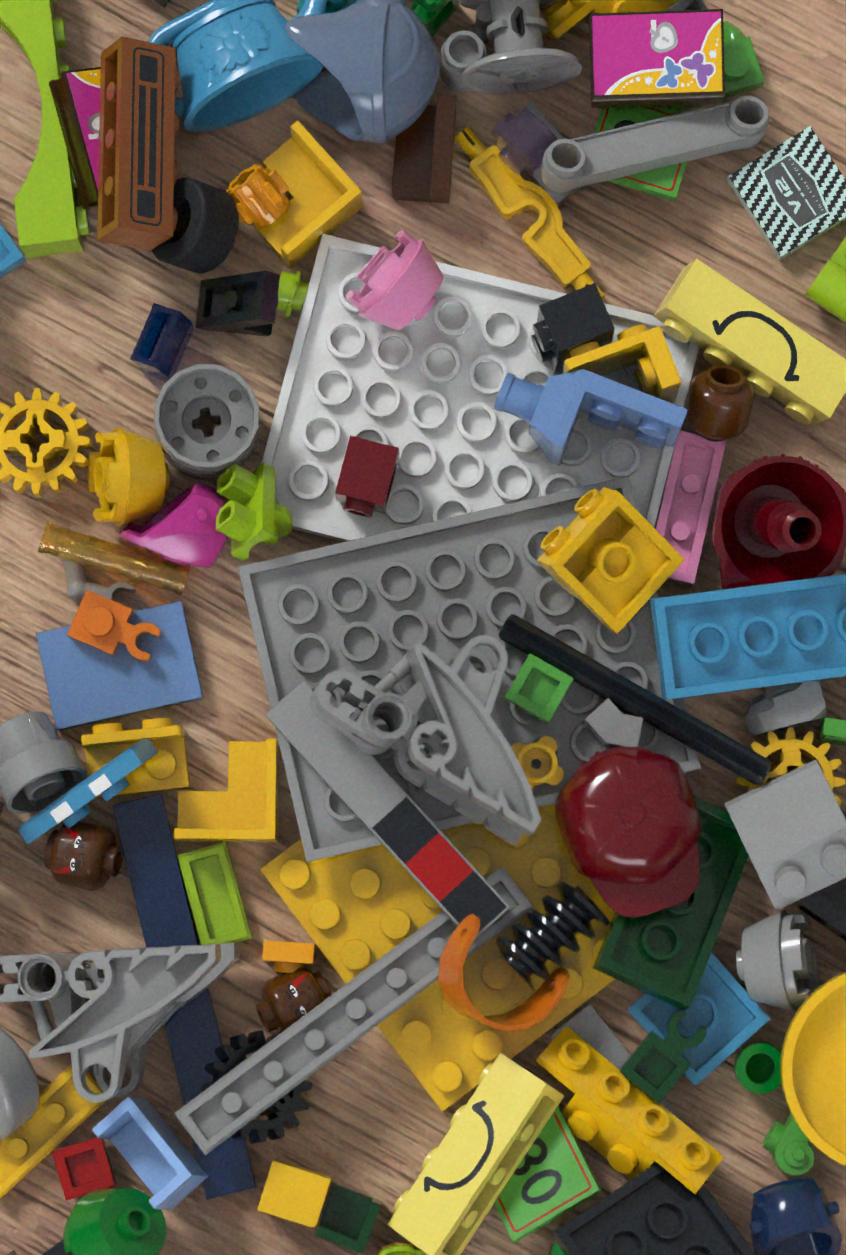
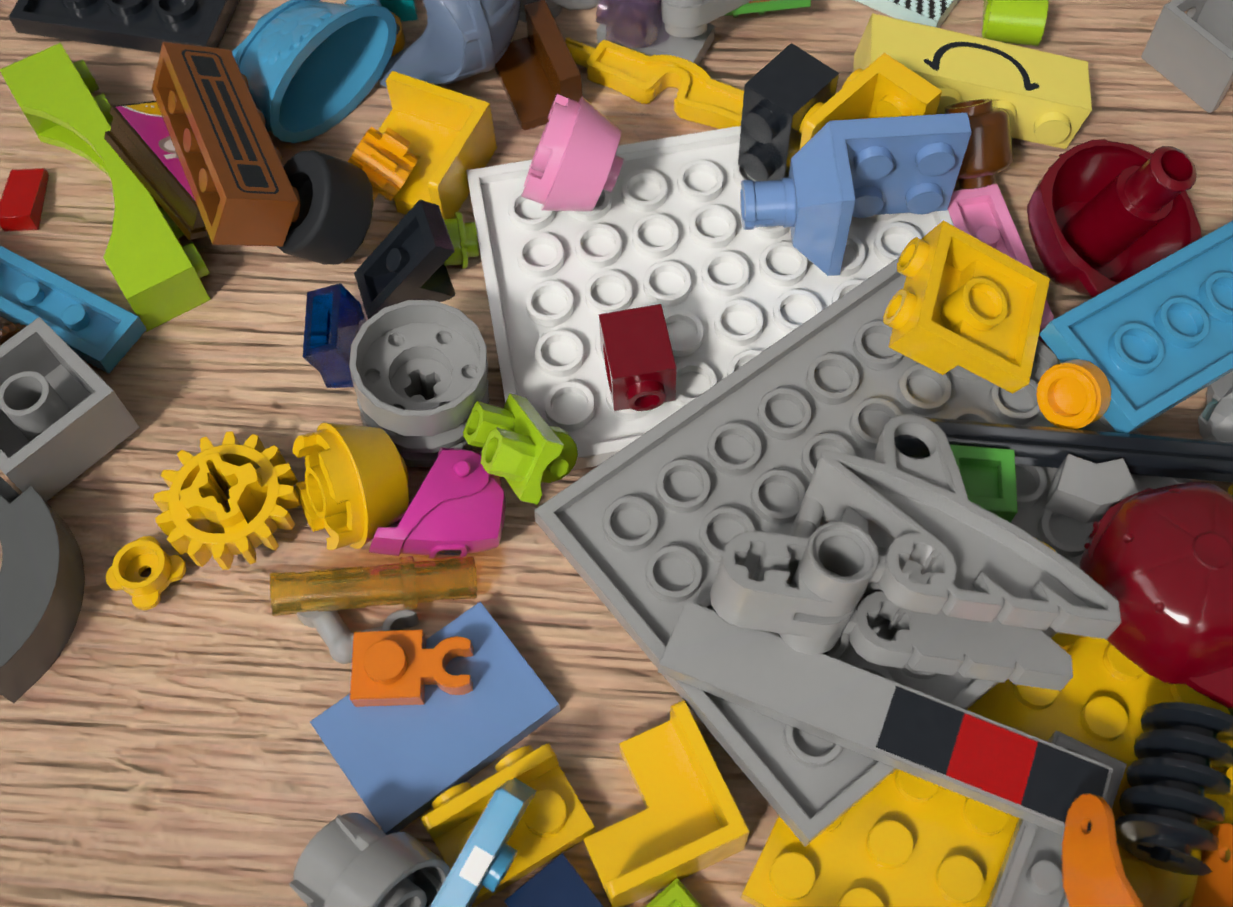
camera: 25 degrees left, 20 degrees down
(642, 655) = (1073, 394): none -> light orange tile

